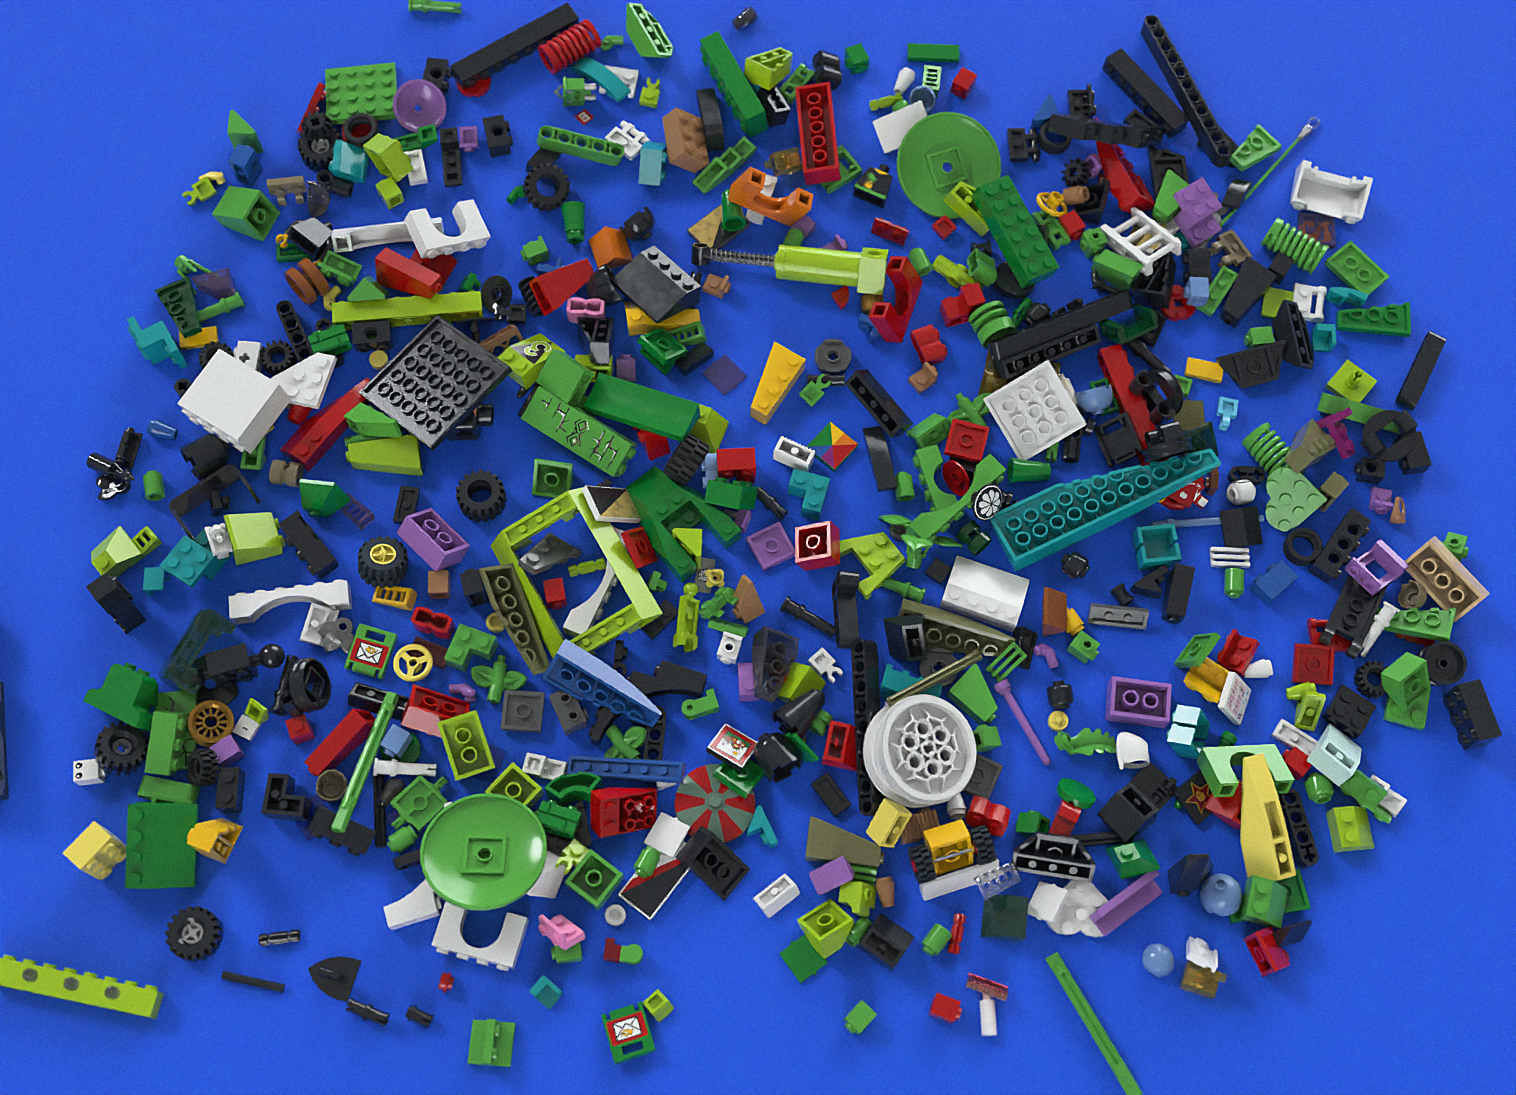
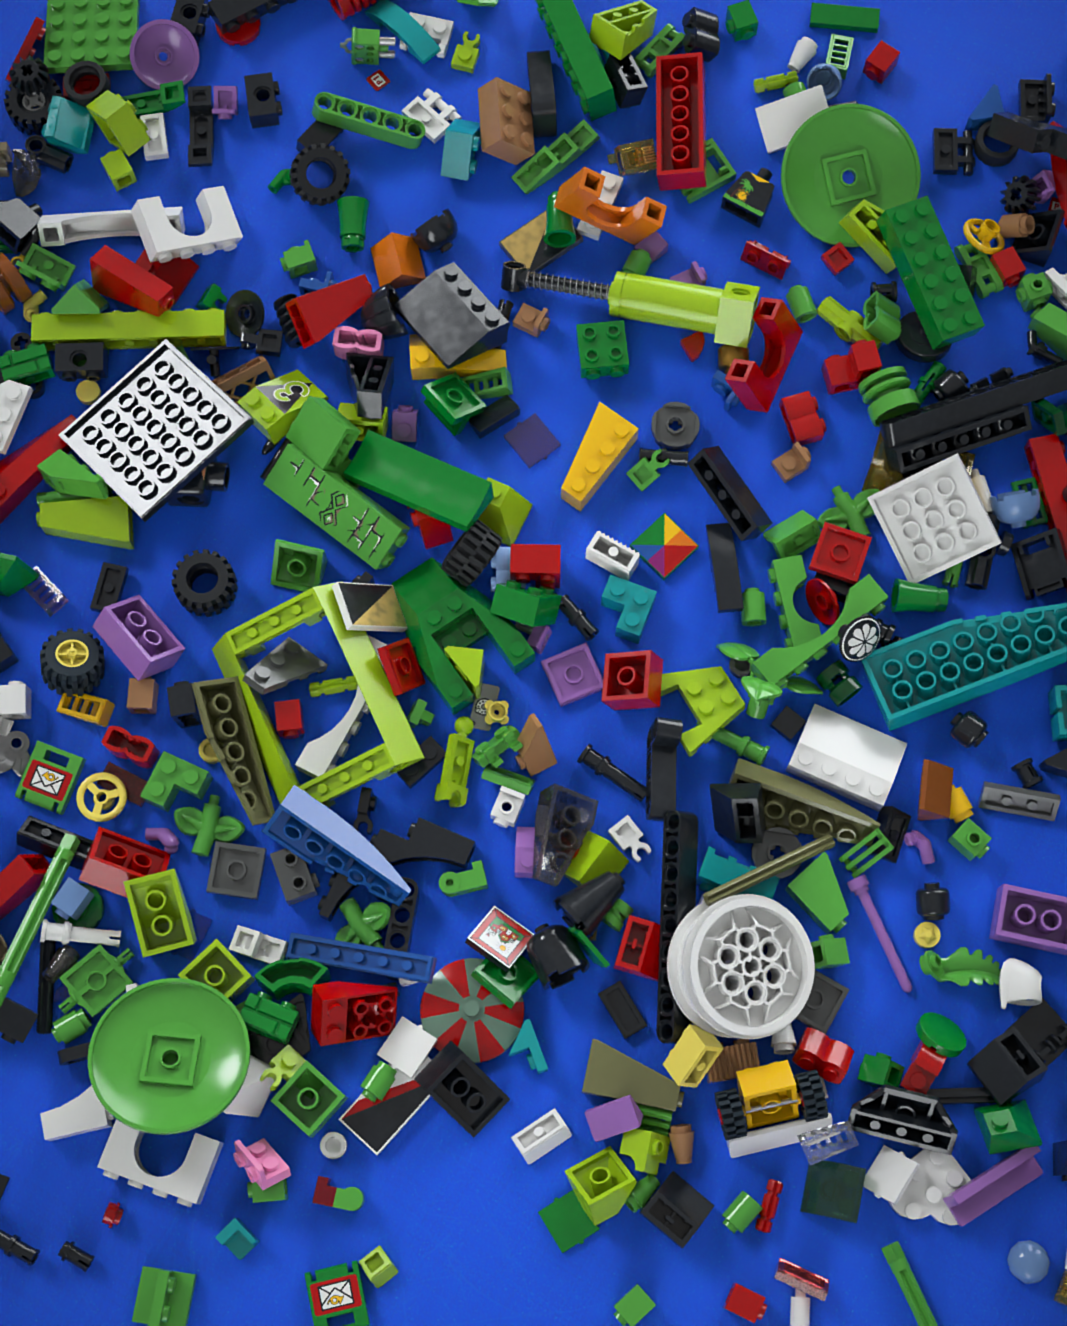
camera: 10 degrees right, 5 degrees up
(772, 303) = (602, 349): none -> green brick

